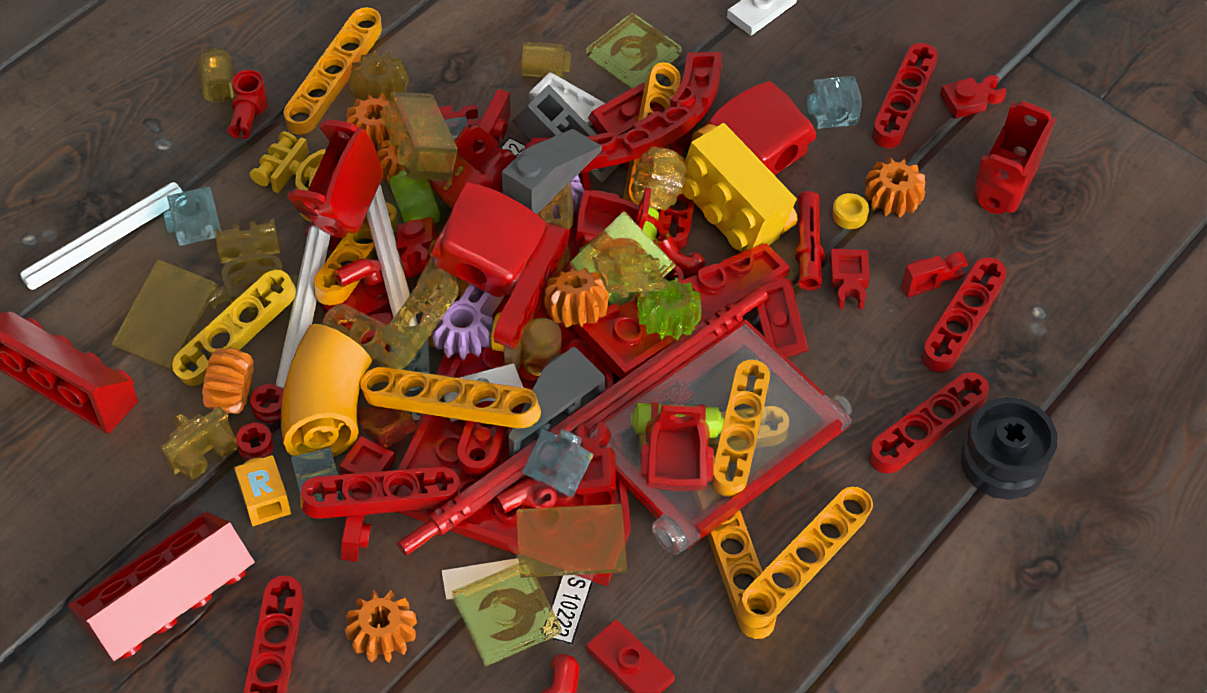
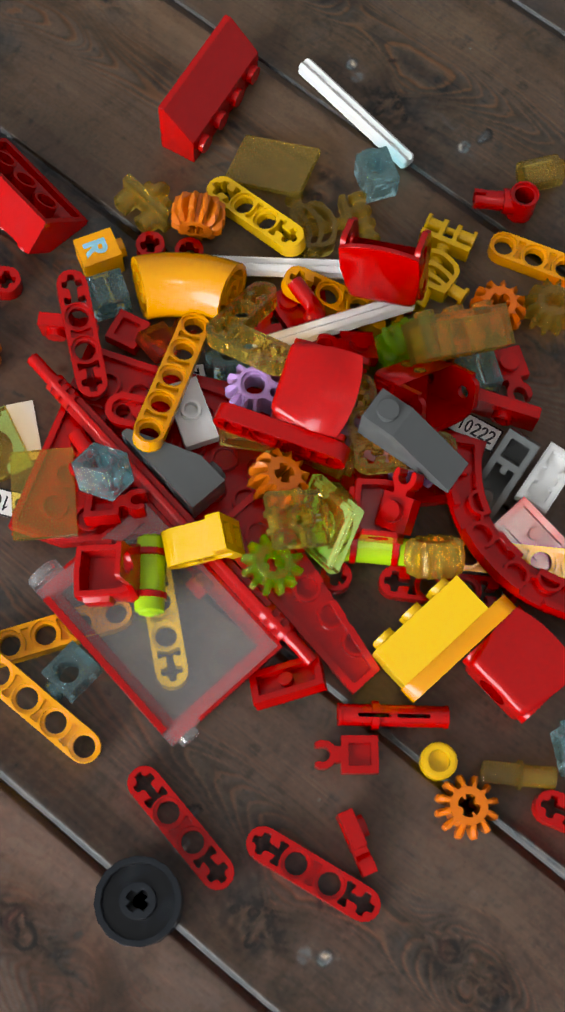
camera: 85 degrees right, 15 degrees up
(540, 343) = (233, 455): clear yellow brick -> none
(612, 194) = (398, 507): none -> red plate
(648, 358) = (202, 541): none -> yellow tile
(688, 264) = (360, 583): red arm -> none
(741, 427) = (150, 642): light orange beam -> none
(775, 500) = (75, 657): none -> clear light blue brick
(860, 148) = (518, 774): none -> clear yellow axle
(1006, 170) = (504, 938): red piece -> none

